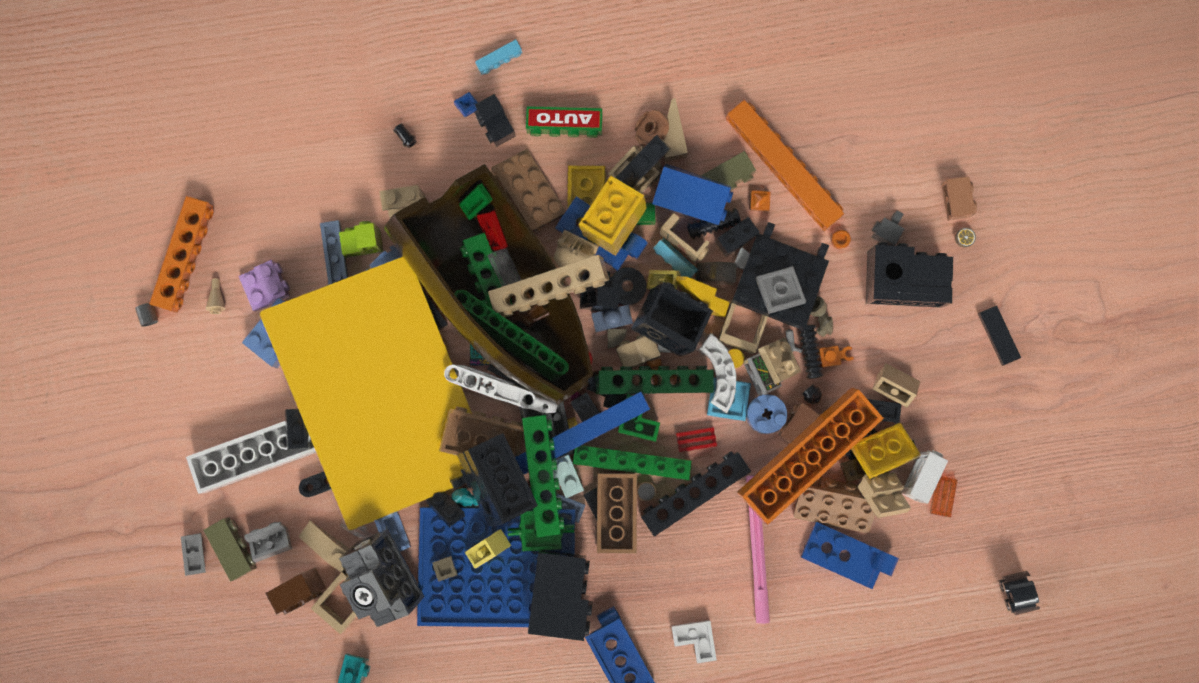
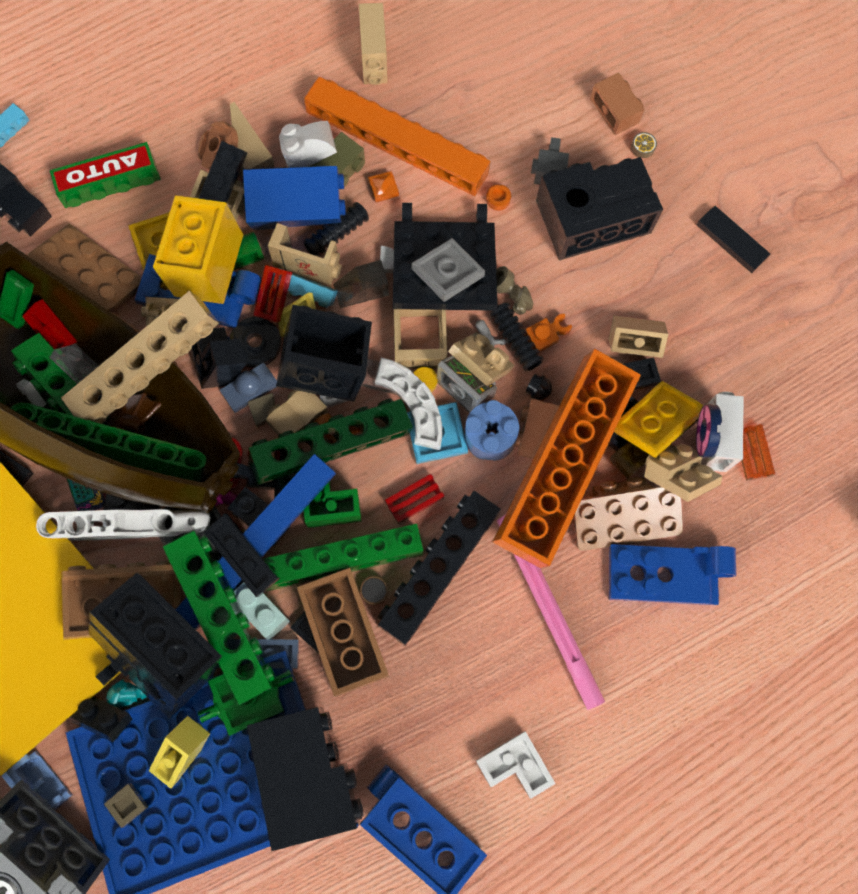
camera: 30 degrees left, 10 degrees down
(465, 272) = (31, 393): none -> white tile
(569, 440) = (241, 555): none -> black tile
(656, 240) = (277, 293): none -> red tile
(703, 293) = (353, 306): yellow slope -> none
(716, 152) = (307, 143): none -> white slope
(737, 236) = (370, 233): black brick -> none
(794, 87) = (373, 43): none -> tan window
(914, 471) = (706, 433): none -> dark blue tile

